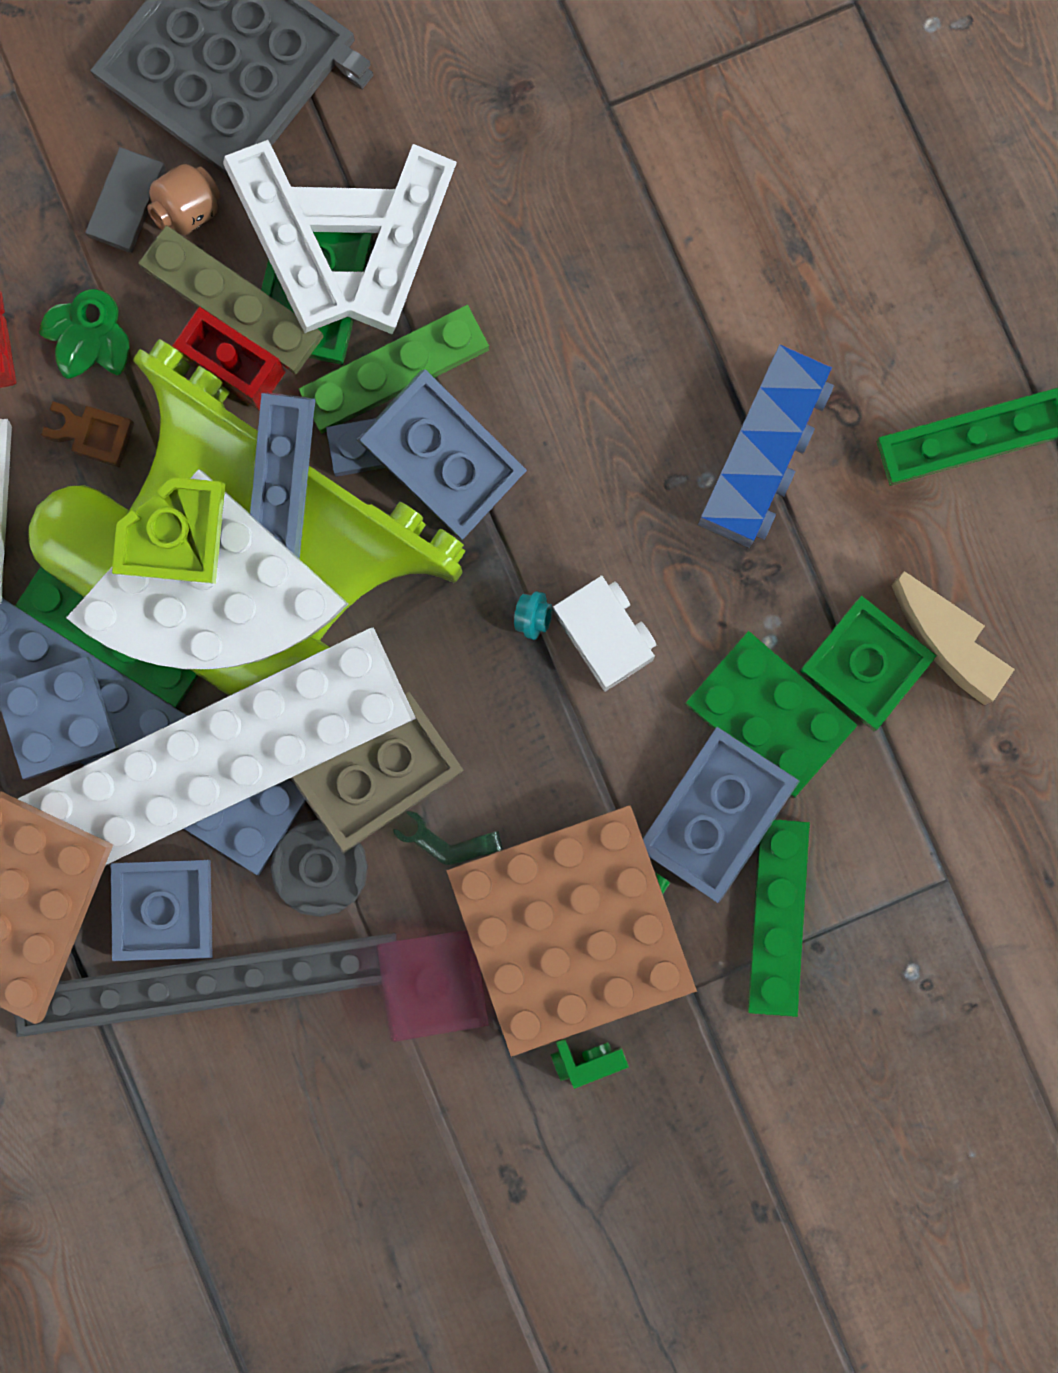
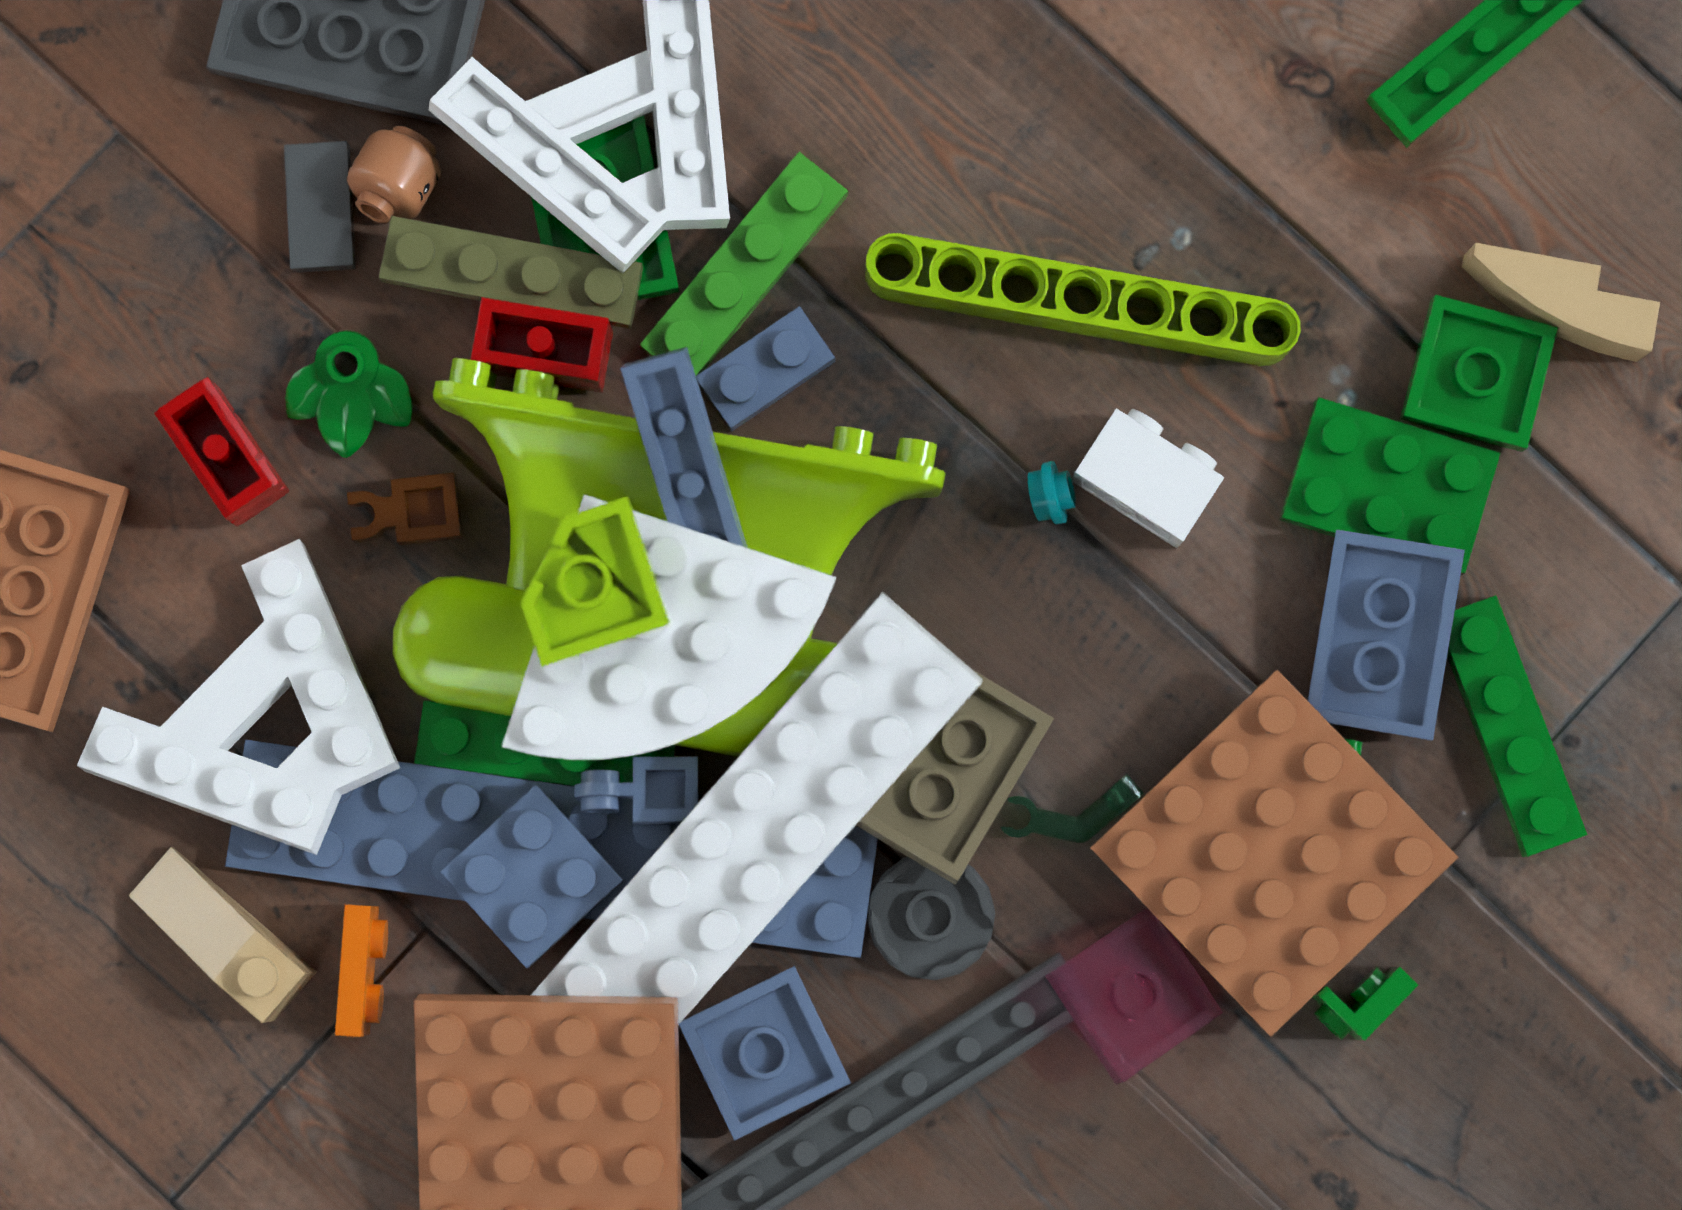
camera: 30 degrees left, 0 degrees up
(166, 699) = (661, 790): none -> sand blue plate
(441, 454) = (854, 347): sand blue plate -> none
(624, 512) = (1110, 288): none -> lime beam
(765, 447) = (1239, 164): brick -> none

